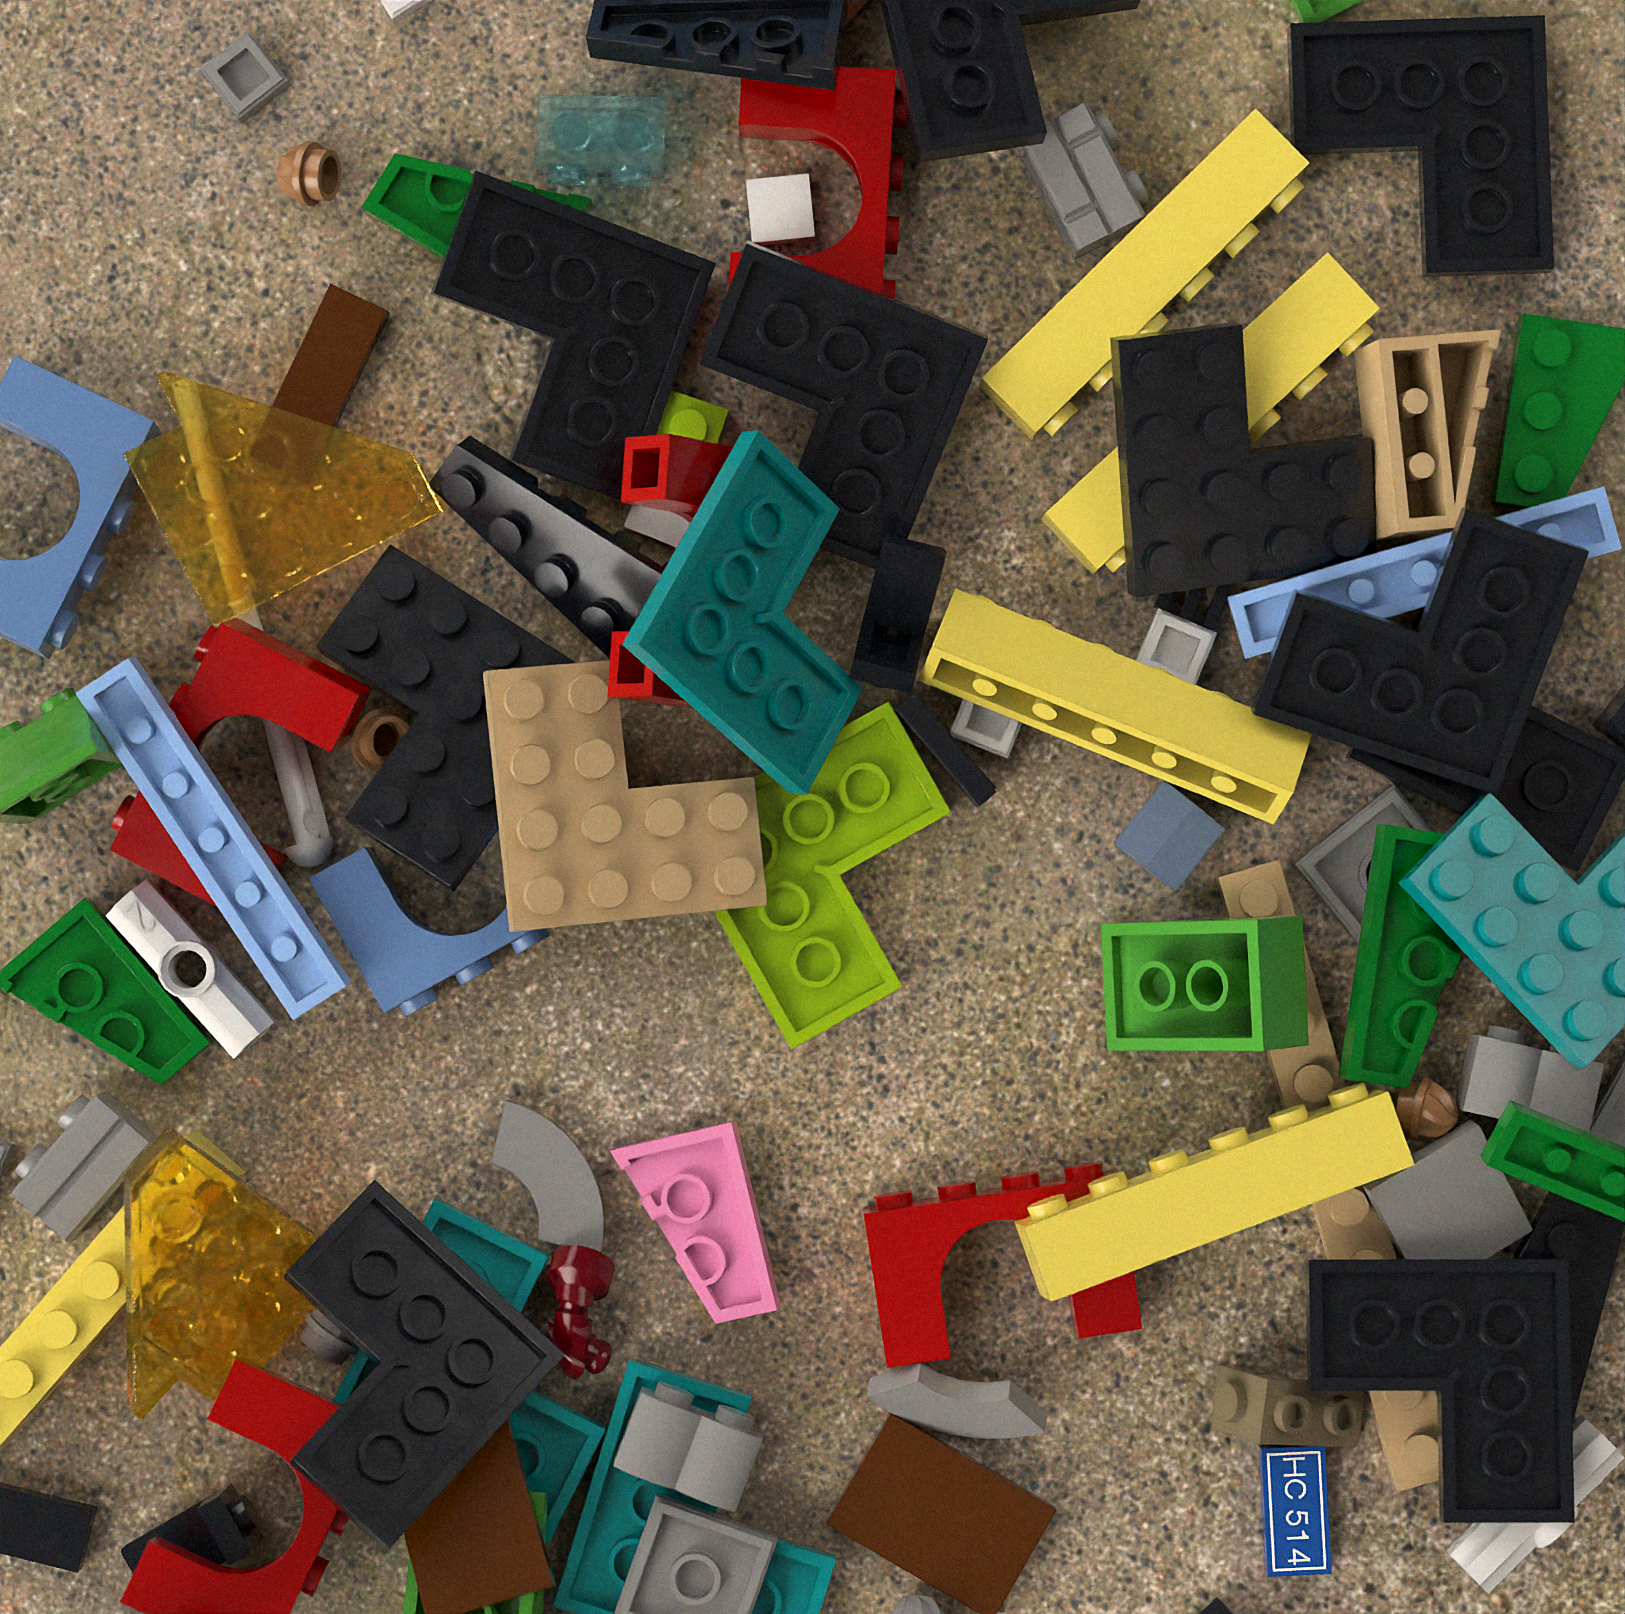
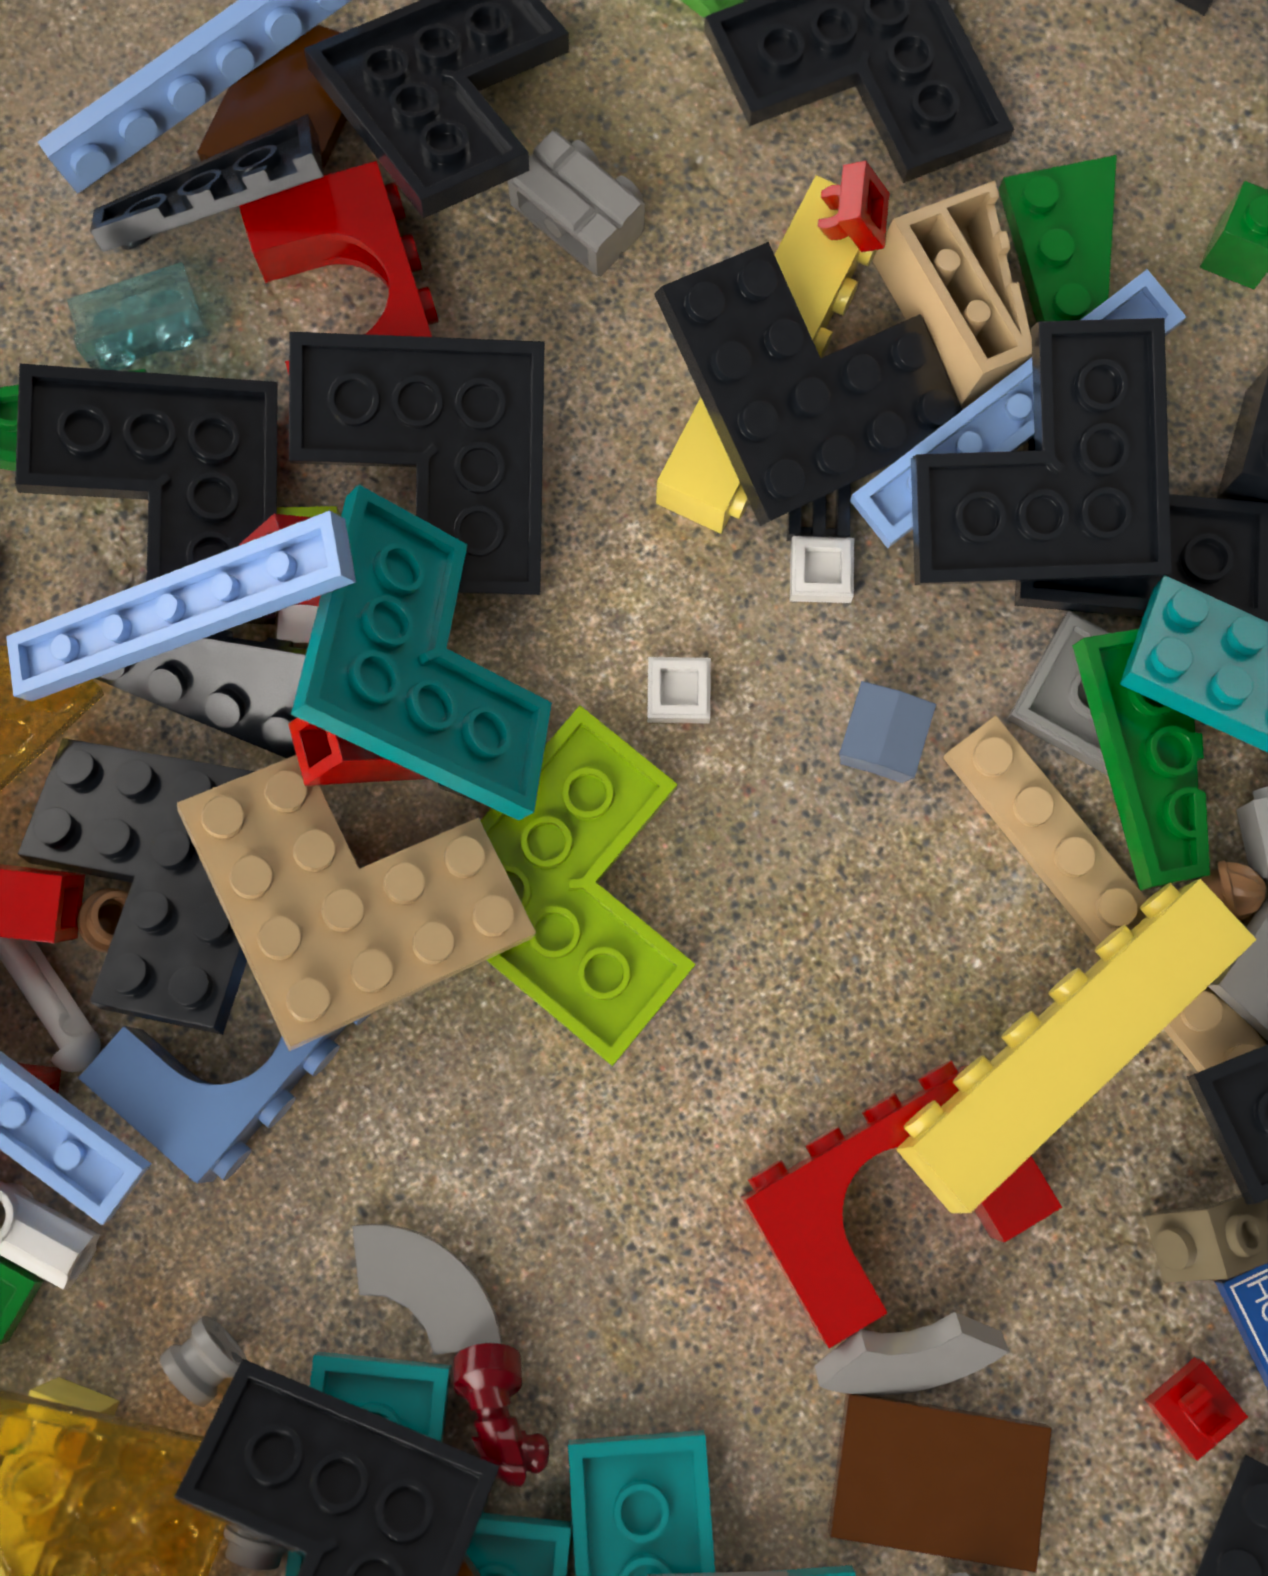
camera: 20 degrees left, 10 degrees down
(335, 1167) = (202, 1361): none -> light grey wheel
(550, 487) = (182, 606): none -> light blue plate
(689, 1447) = (662, 1514): light grey brick -> none
(708, 1211) = (594, 1263): bright pink wing -> none
(780, 209) = (320, 313): white tile -> none
(897, 613) = (556, 617): black bracket -> none
(945, 750) = (650, 730): black tile -> none
(1115, 706) = (791, 630): light yellow brick -> none
(1145, 274) = (671, 238): light yellow brick -> none
(1192, 1543) = (1196, 1408): none -> red tile
(1205, 984) = (979, 849): bright green slope -> none
(1352, 315) = (861, 208): none -> red tile

